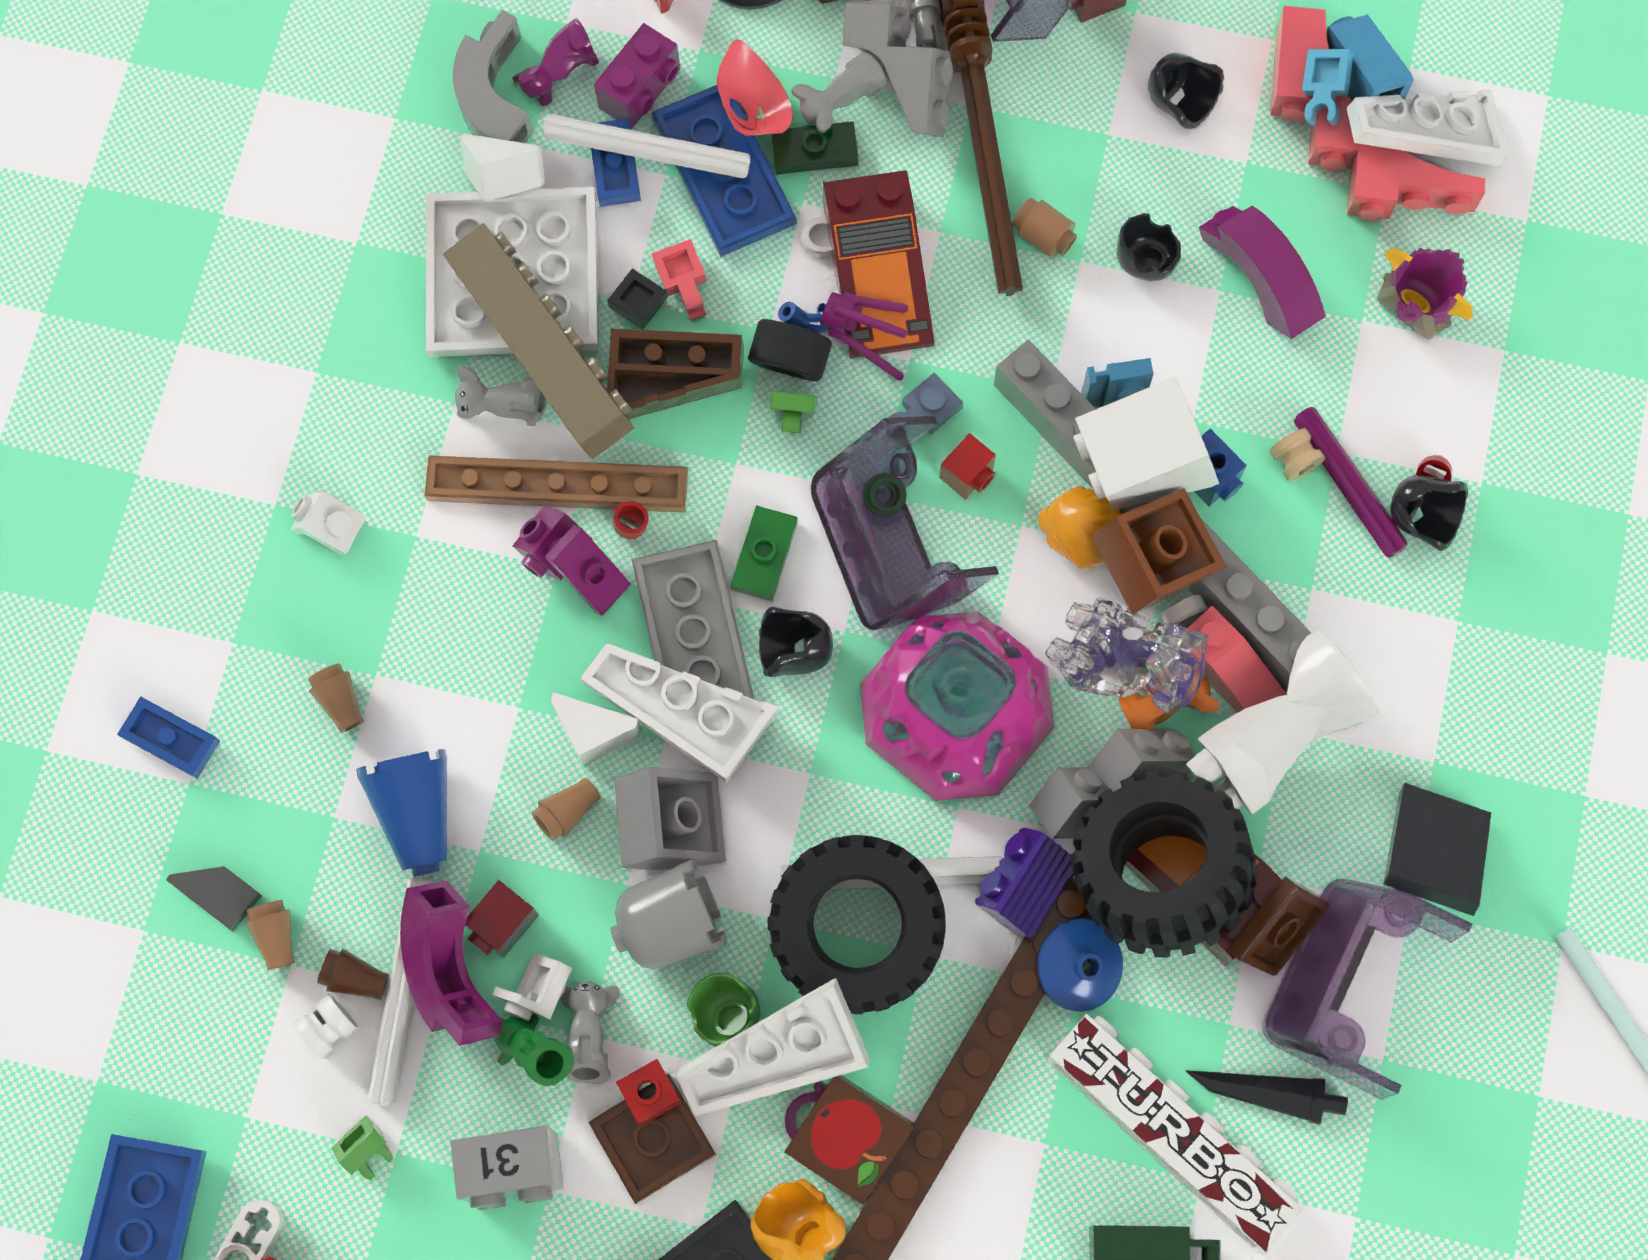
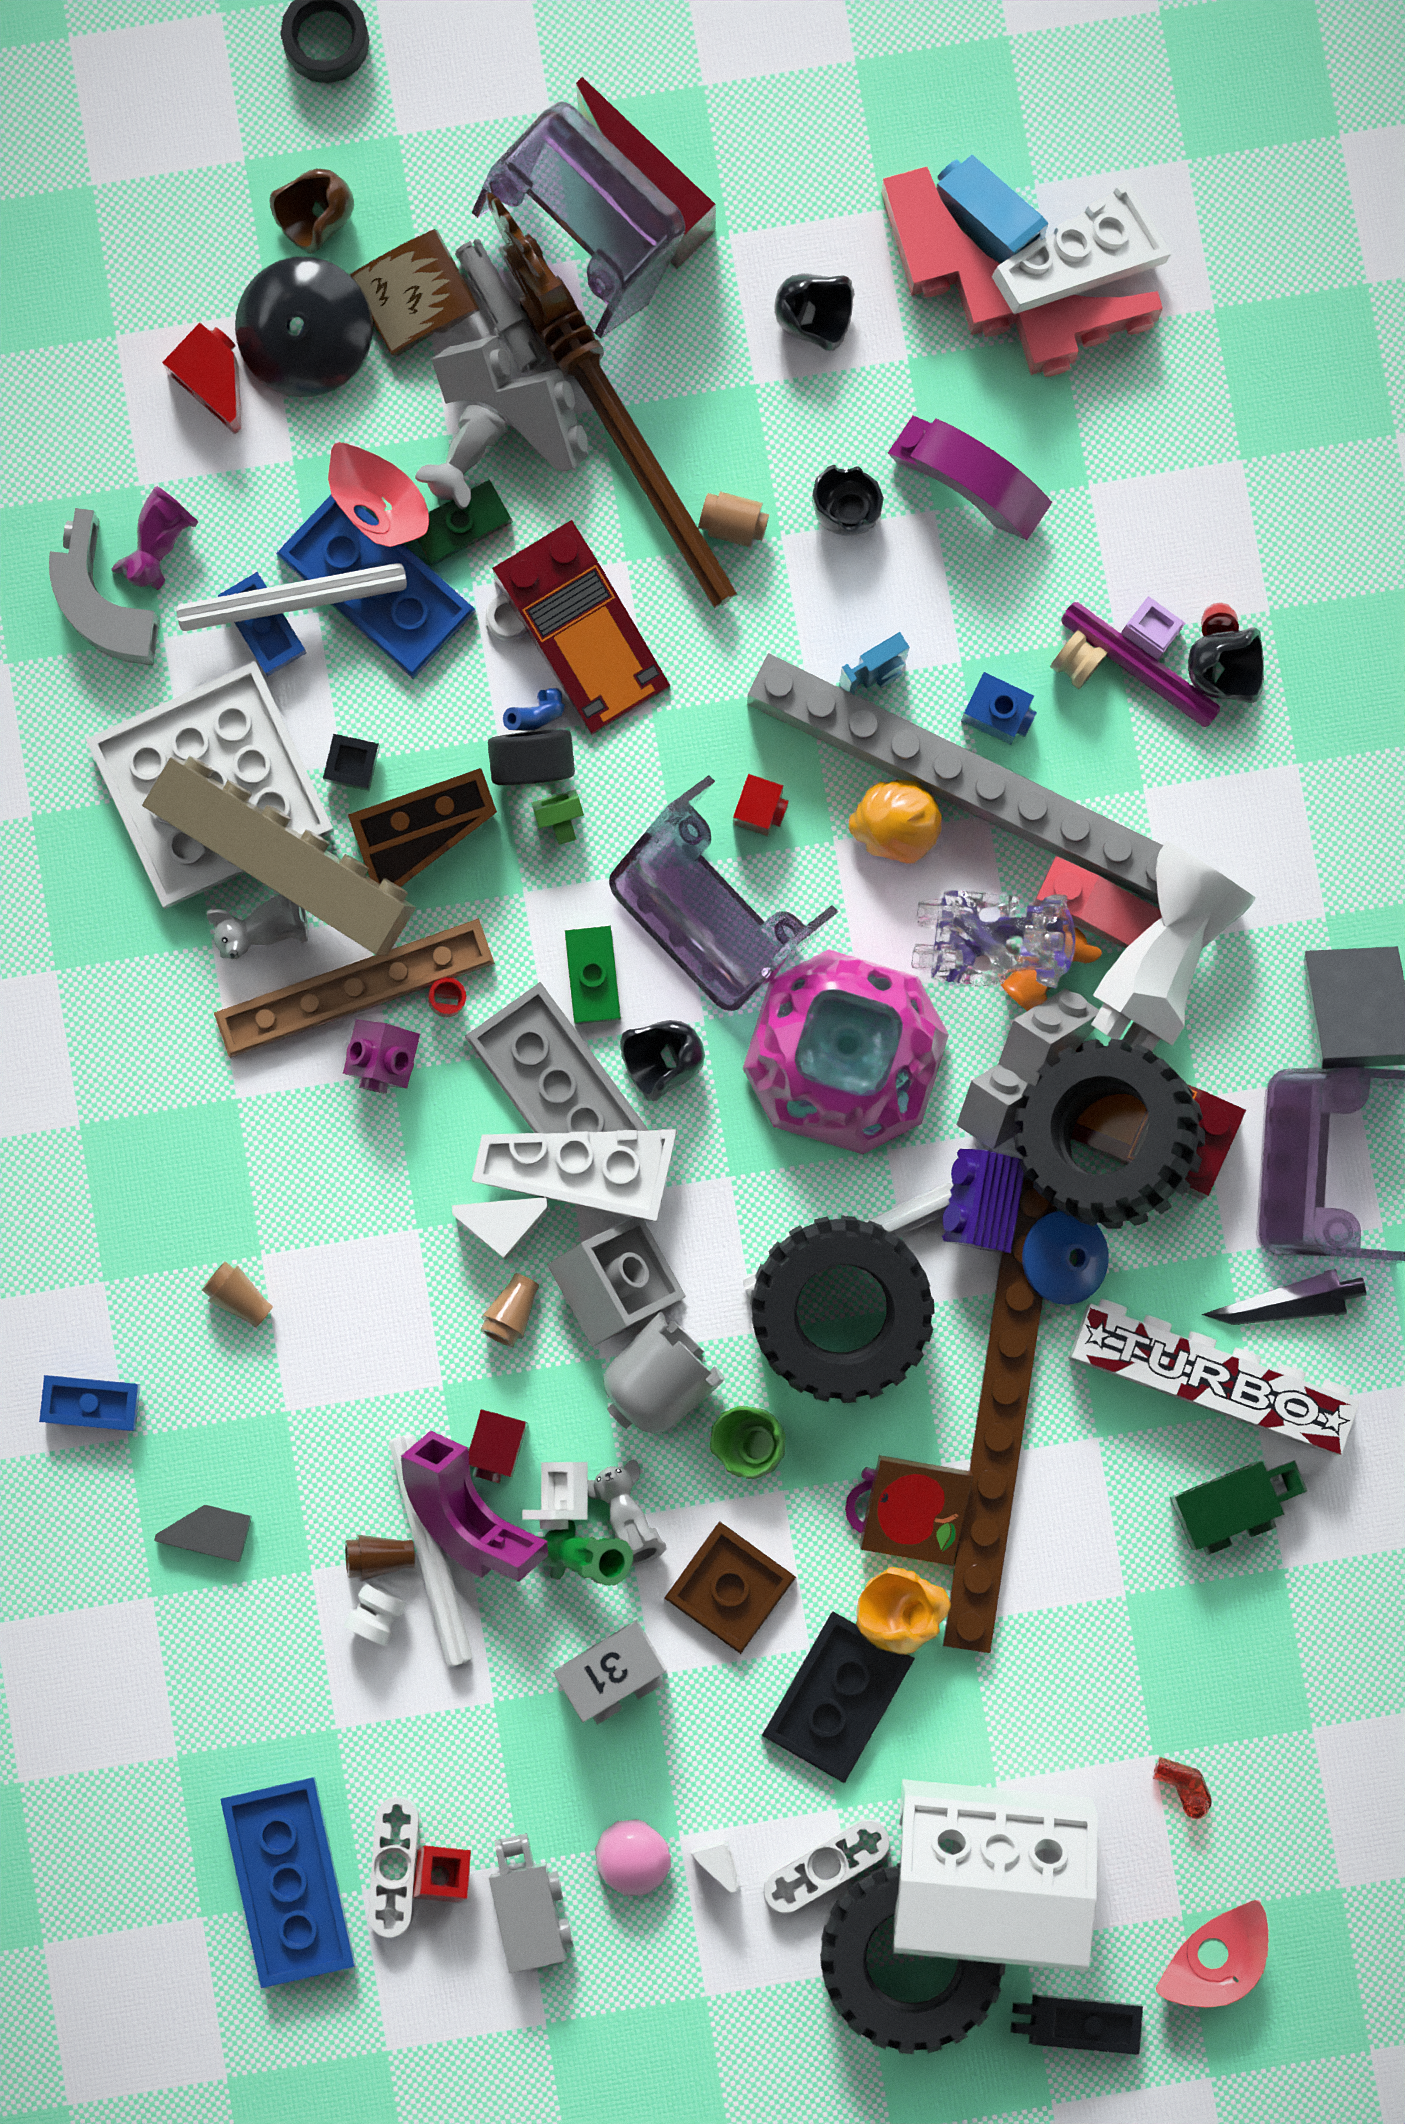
camera: 25 degrees left, 10 degrees up
(272, 933) = (281, 1548): medium nougat cone -> none
(327, 521) = (142, 1122): white bracket -> none
(359, 1145) = (460, 1710): bright green tile -> none
(411, 807) = (362, 1373): blue cone -> none
(501, 166) = (150, 680): white slope -> none
(588, 570) = (430, 1068): magenta plate -> none
(637, 75) = (247, 520): magenta brick -> none
(663, 1100) = (708, 1530): red plate -> none
(682, 272) = (384, 717): coral plate -> none
(784, 1051) = (822, 1459): white wing -> none
(844, 314) = (570, 699): magenta plant -> none
(897, 494) = (700, 874): dark green plate -> none
(931, 399) = (691, 755): sand blue plate -> none
(1144, 447) = (931, 728): white slope -> none
(1157, 550) = (984, 826): dark orange slope -> none
(1185, 611) = (1030, 868): white tile -> none
(1279, 927) = (1240, 1147): reddish brown tile -> none
(1326, 77) = (957, 248): medium azure plate -> none
(1373, 455) = (1153, 628): none -> lavender tile
(1425, 289) = (1141, 433): magenta hair -> none

